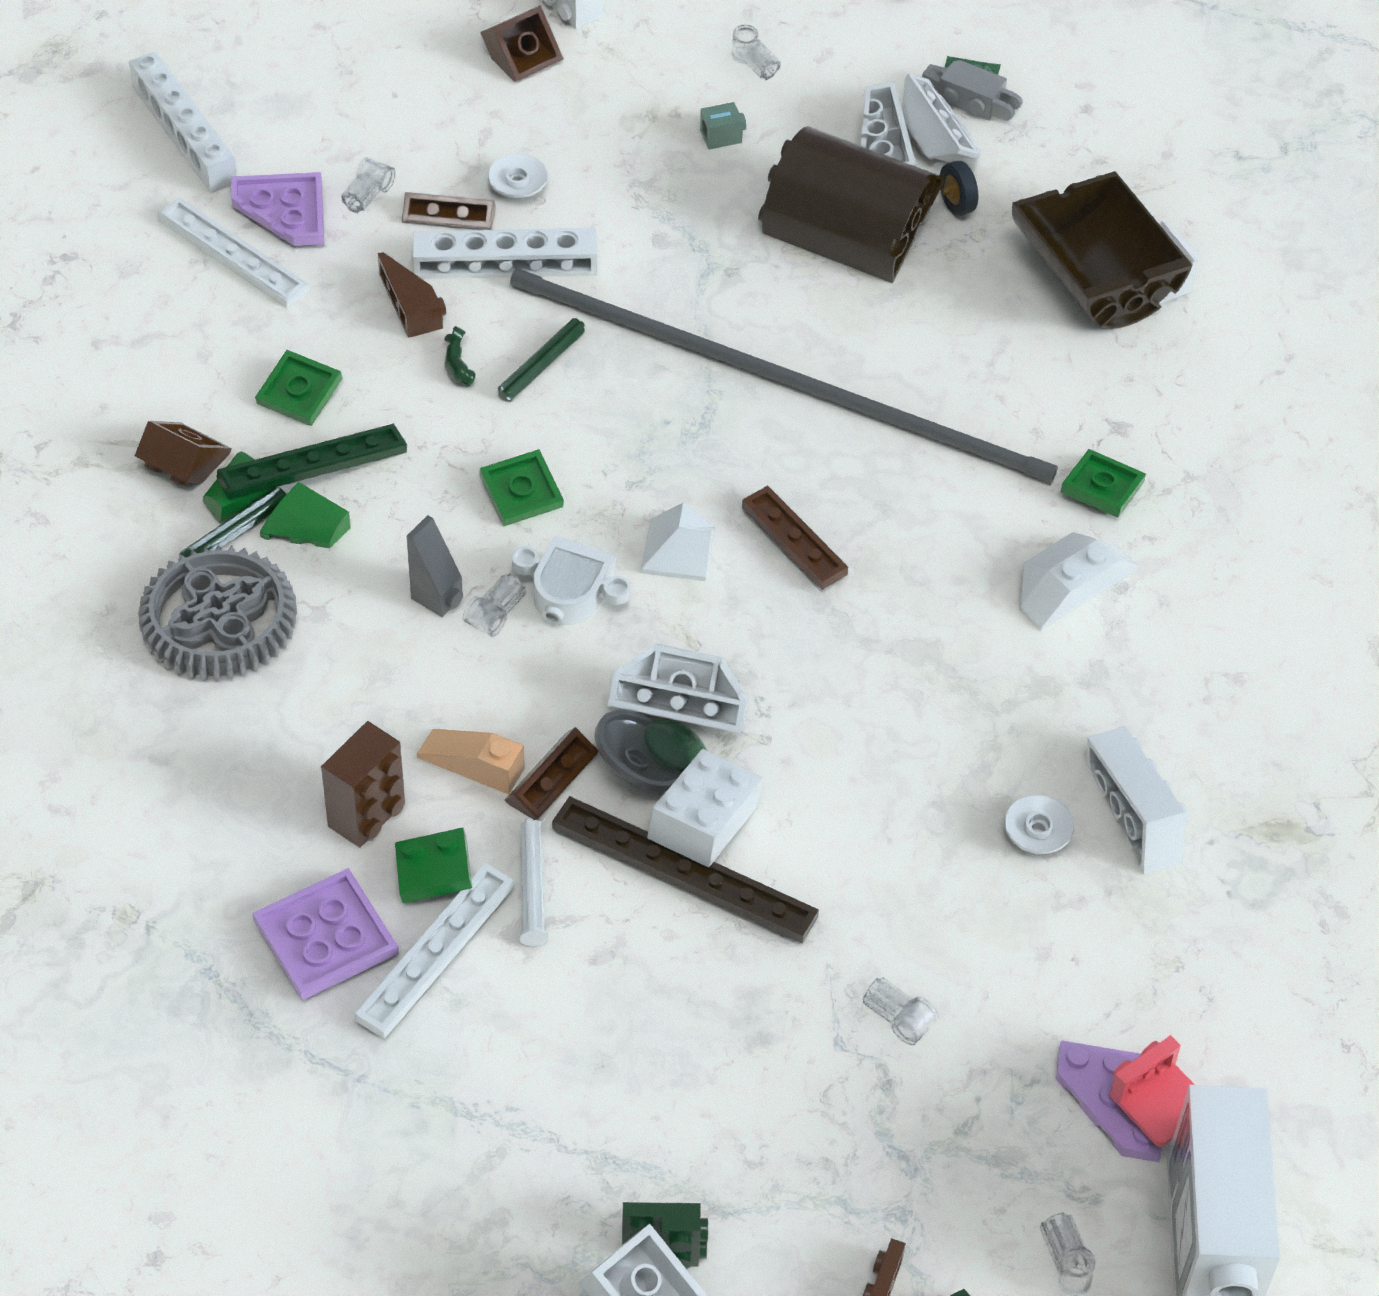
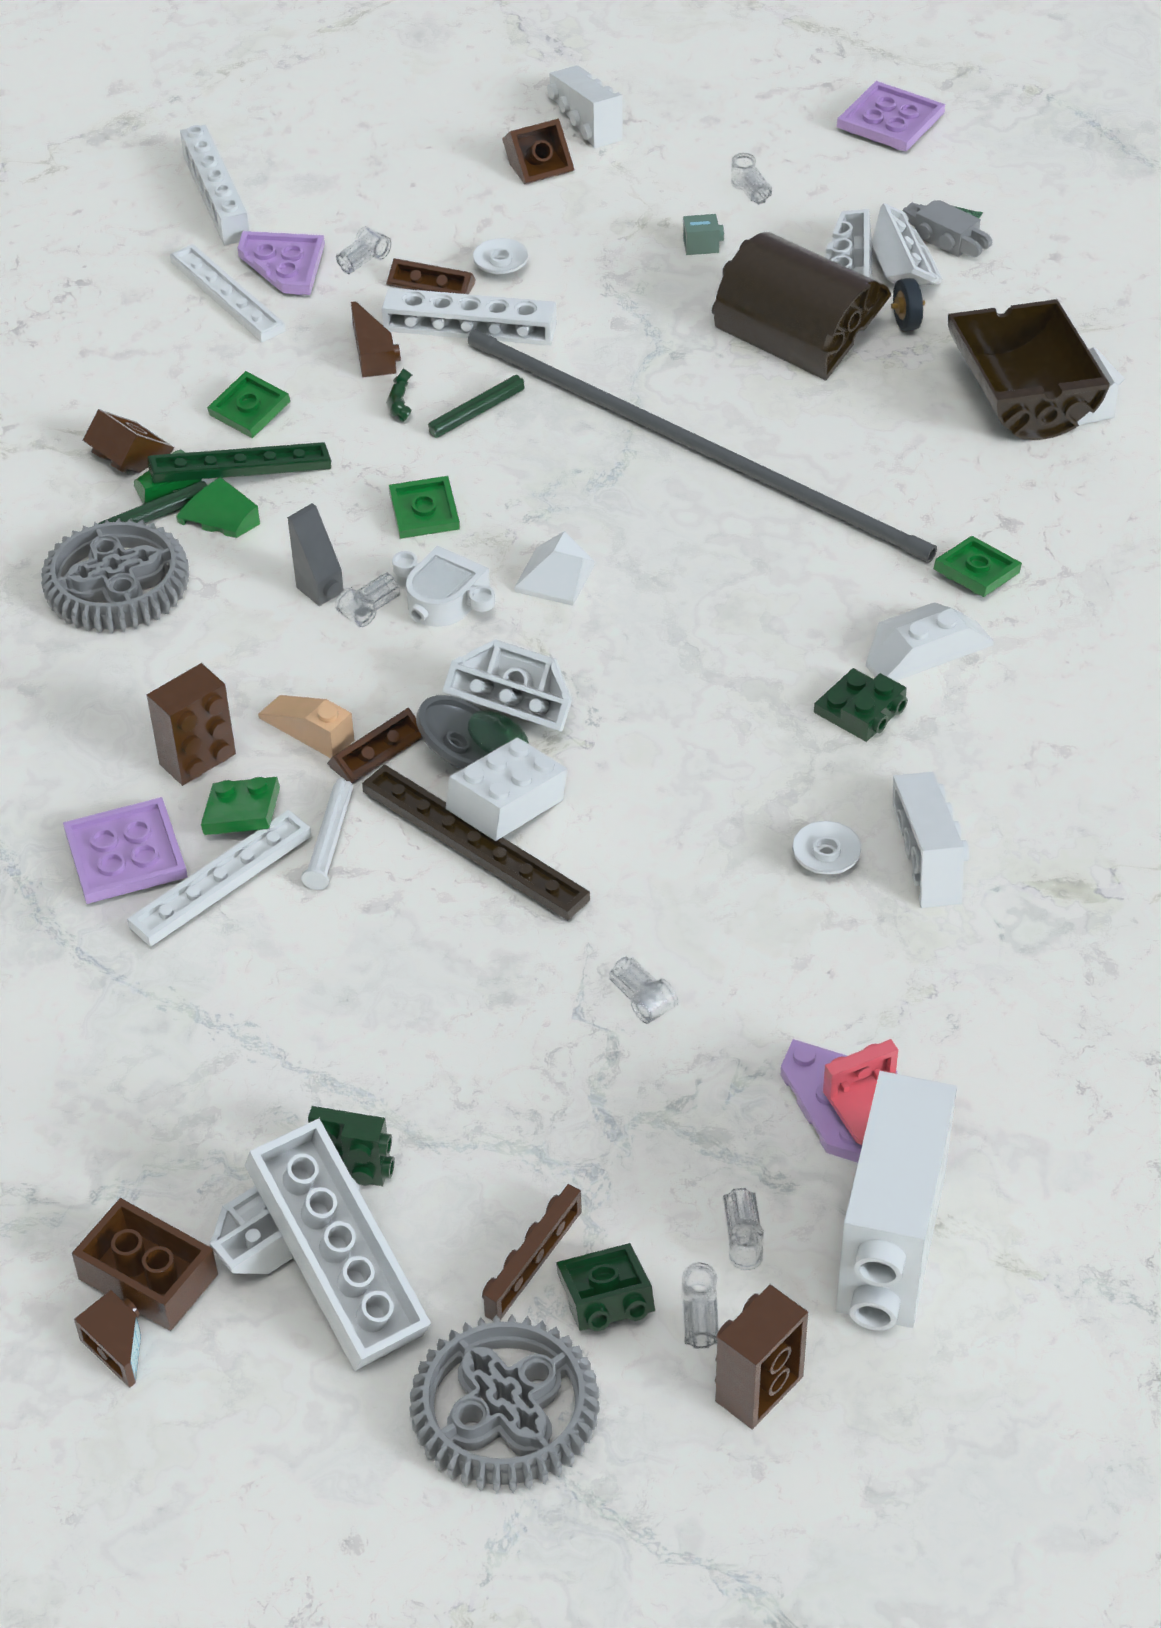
camera: 15 degrees right, 5 degrees down
(795, 537) = (666, 577): reddish brown plate -> none
(1029, 655) = (862, 703): none -> dark green plate

